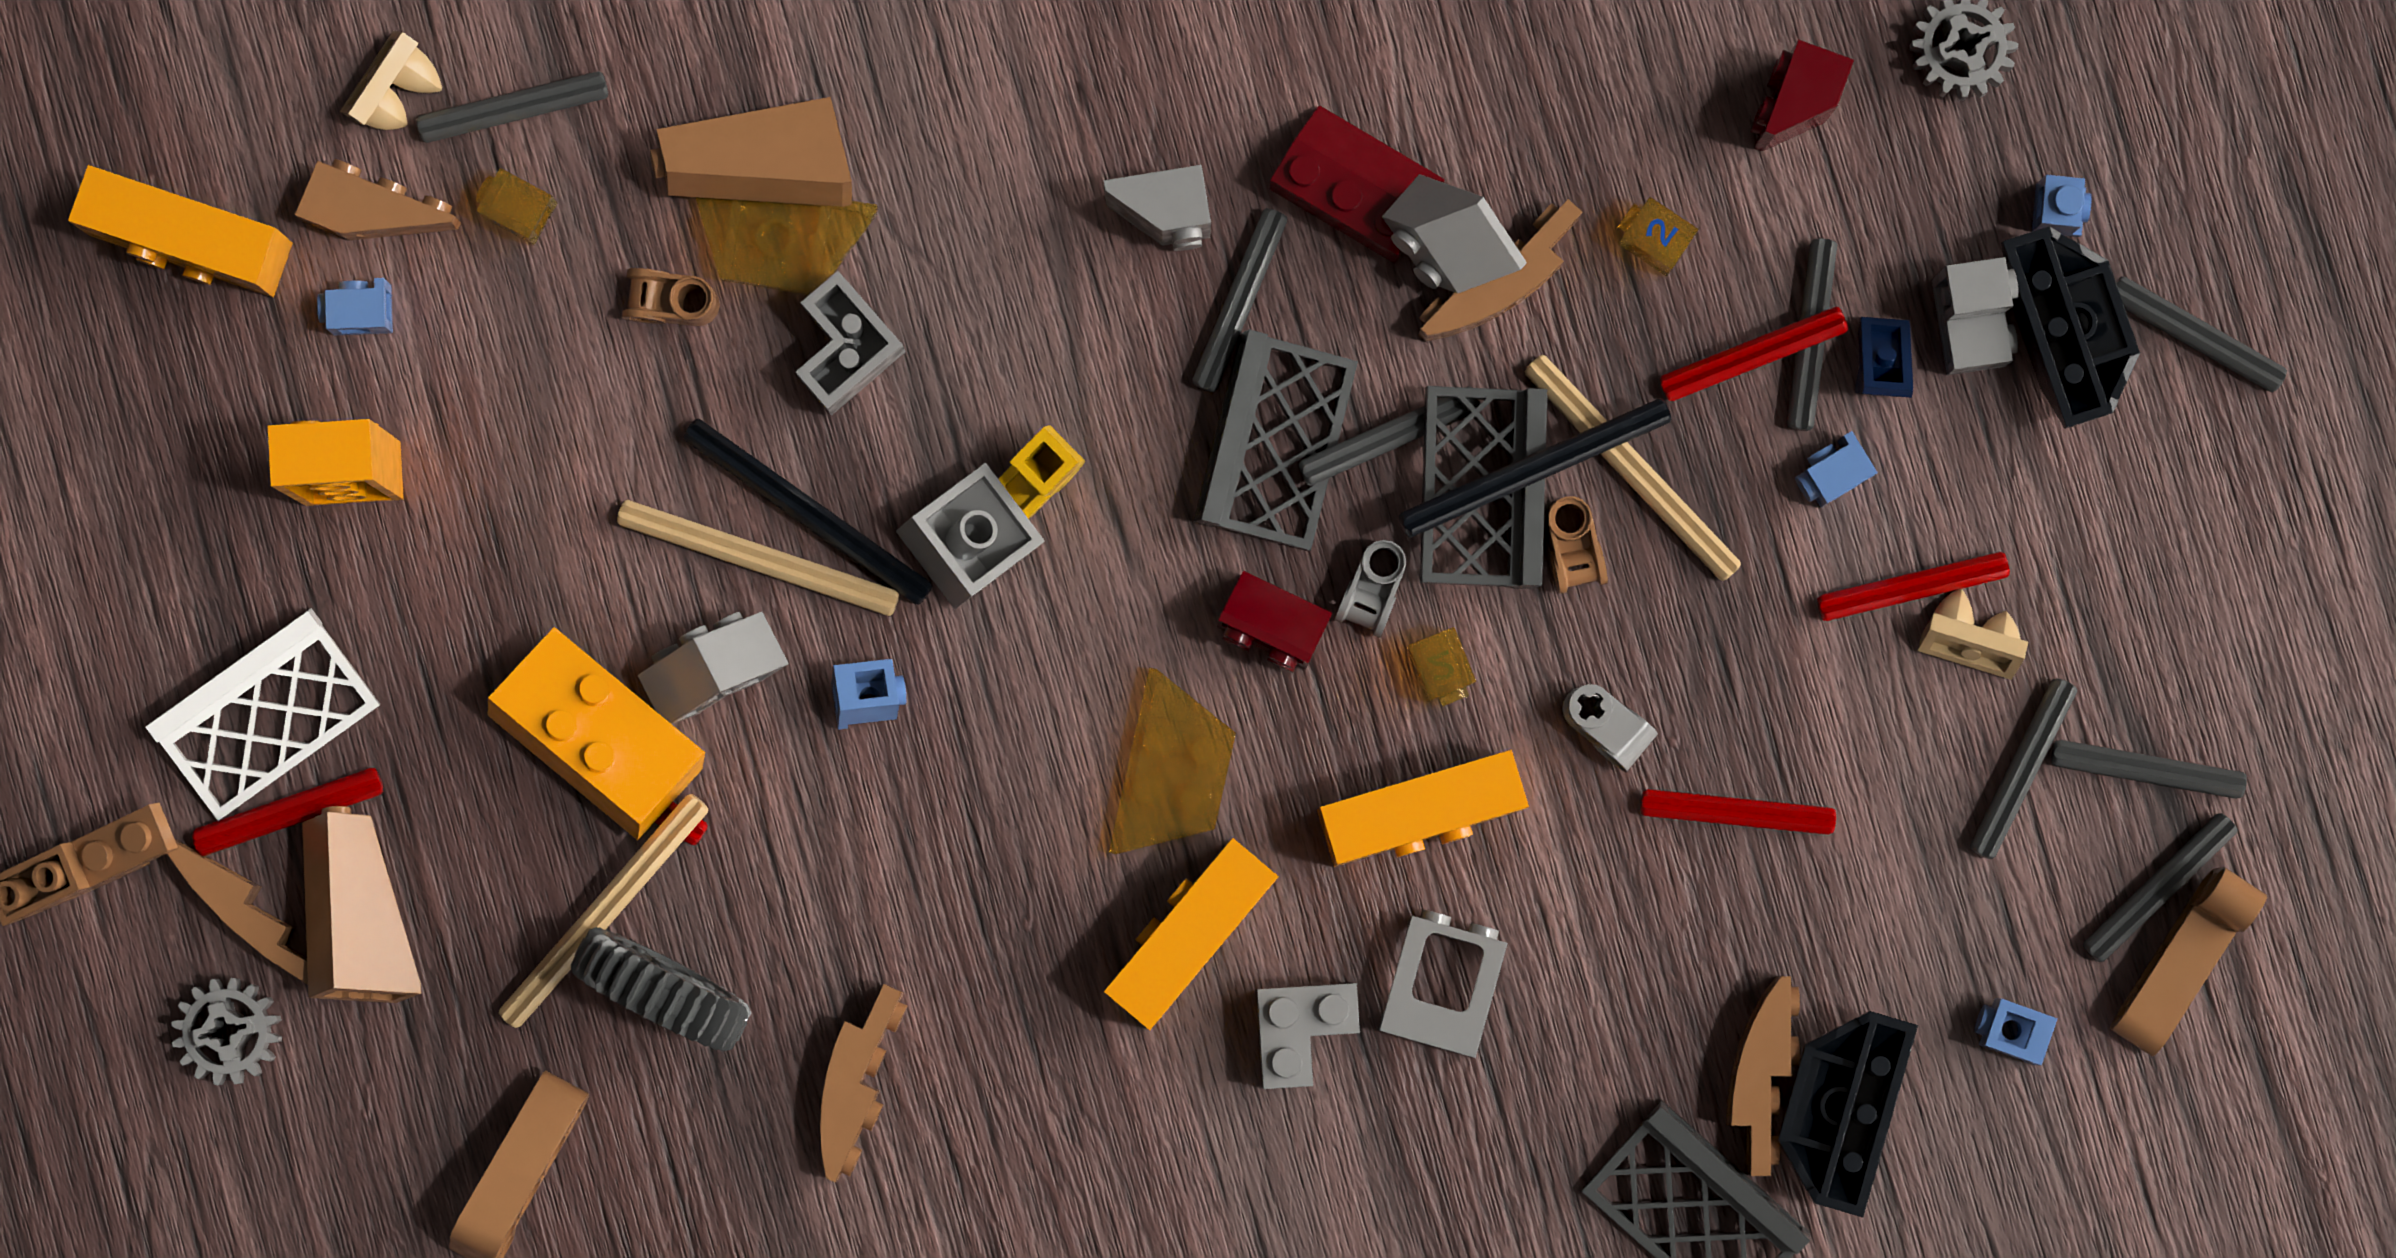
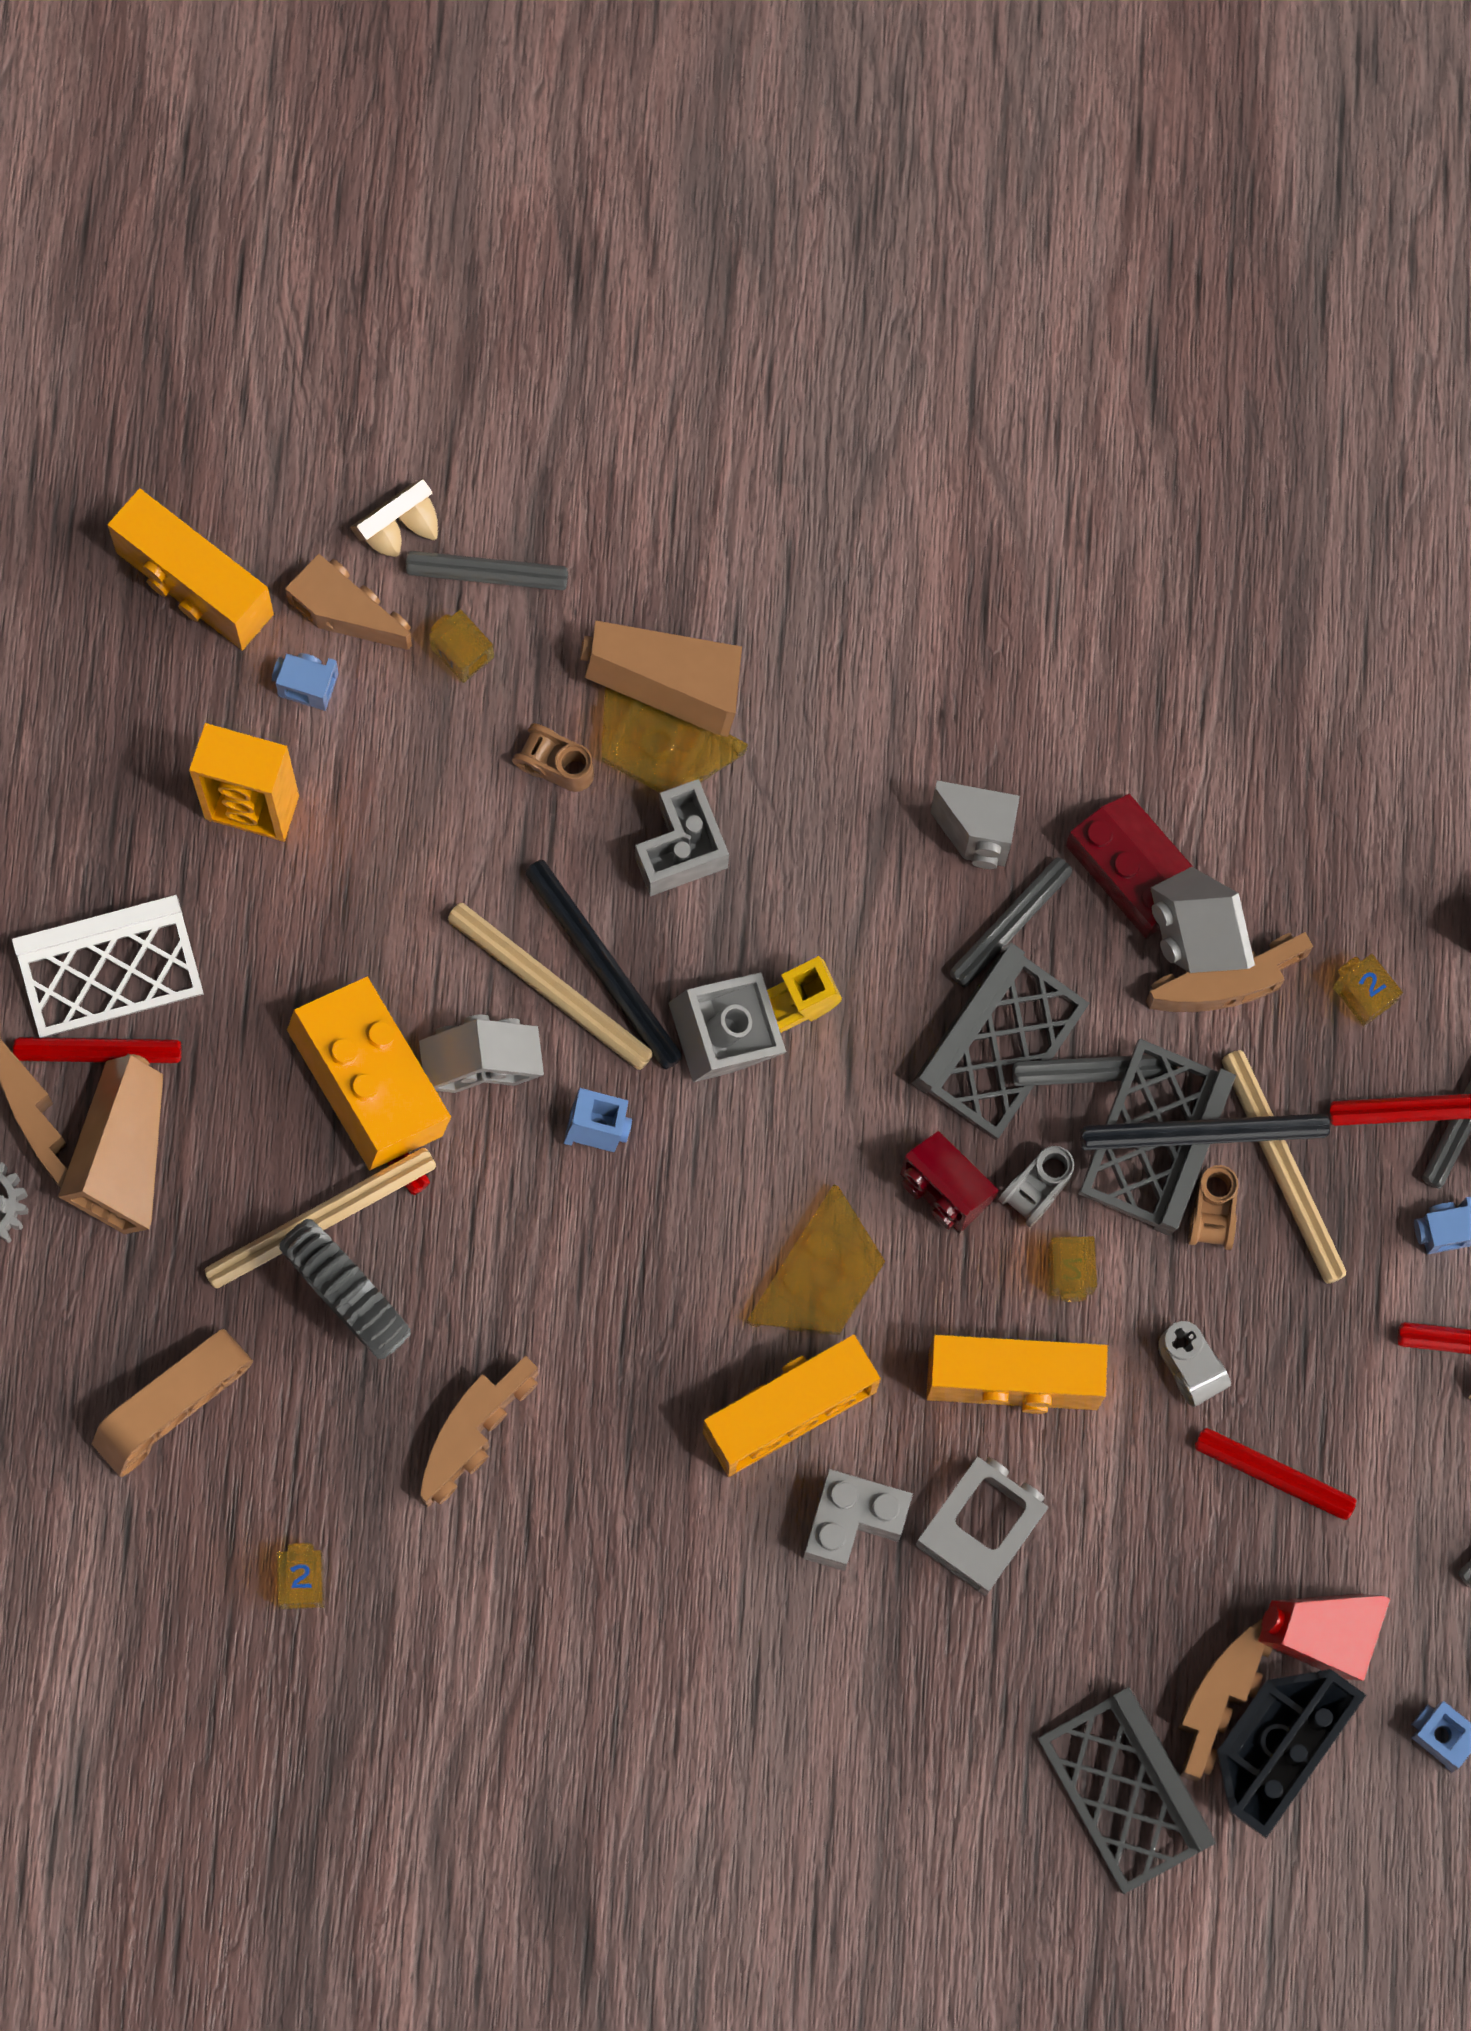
camera: 20 degrees right, 10 degrees down
(1851, 965) = (1327, 1631): none -> slope

